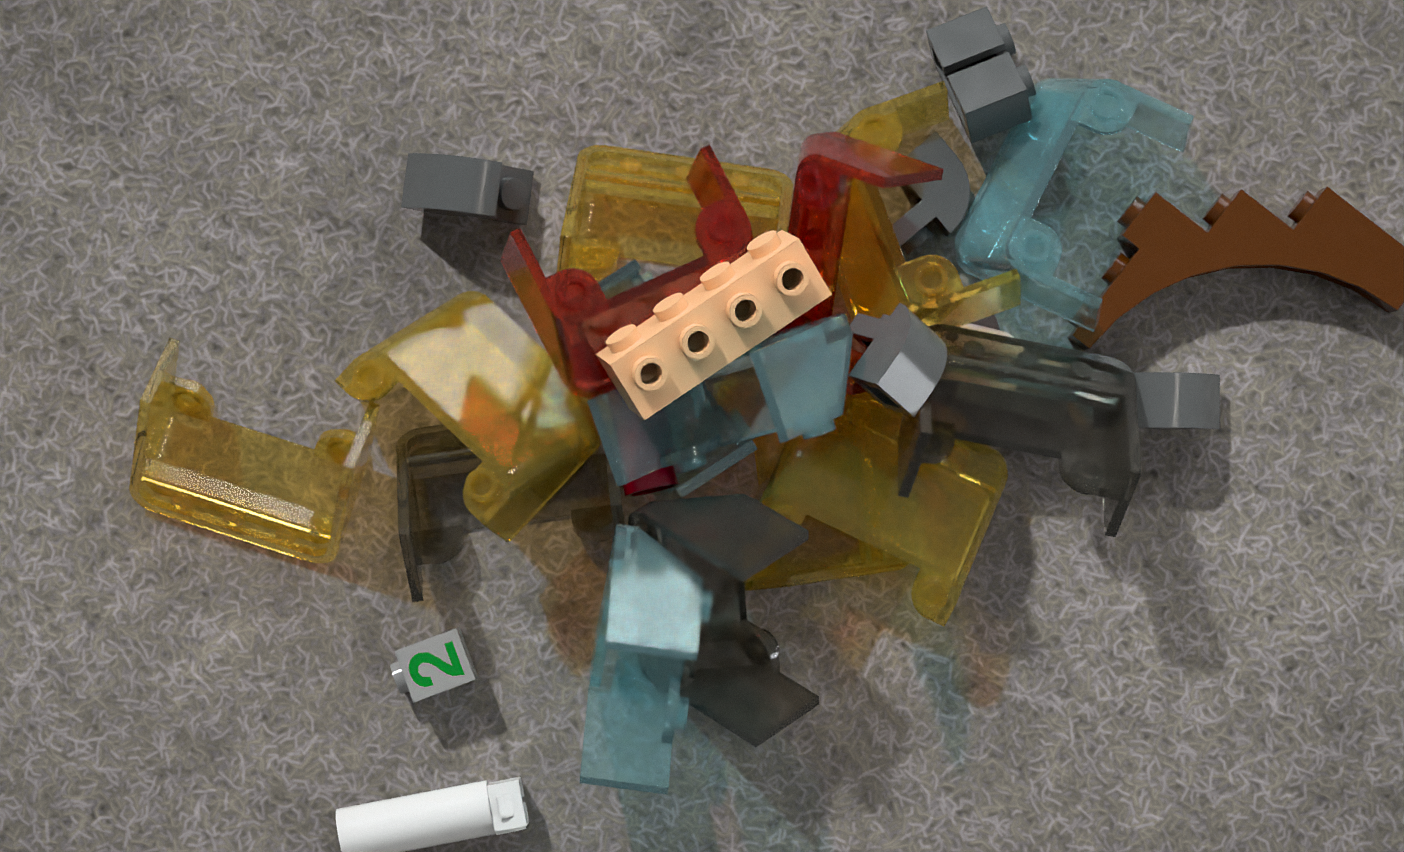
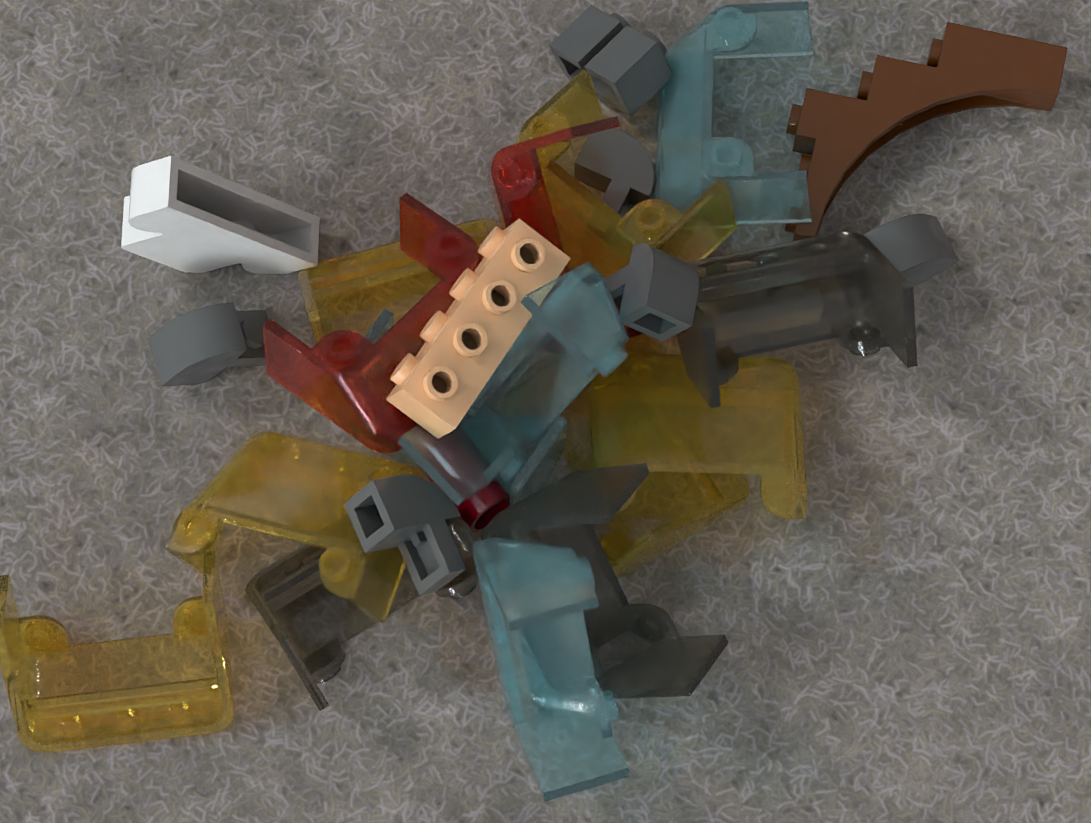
camera: 25 degrees left, 15 degrees down
(433, 665) = (365, 770): light grey brick -> none
(519, 78) = (209, 222): none -> white brick
(575, 471) = (415, 518): none -> dark grey brick

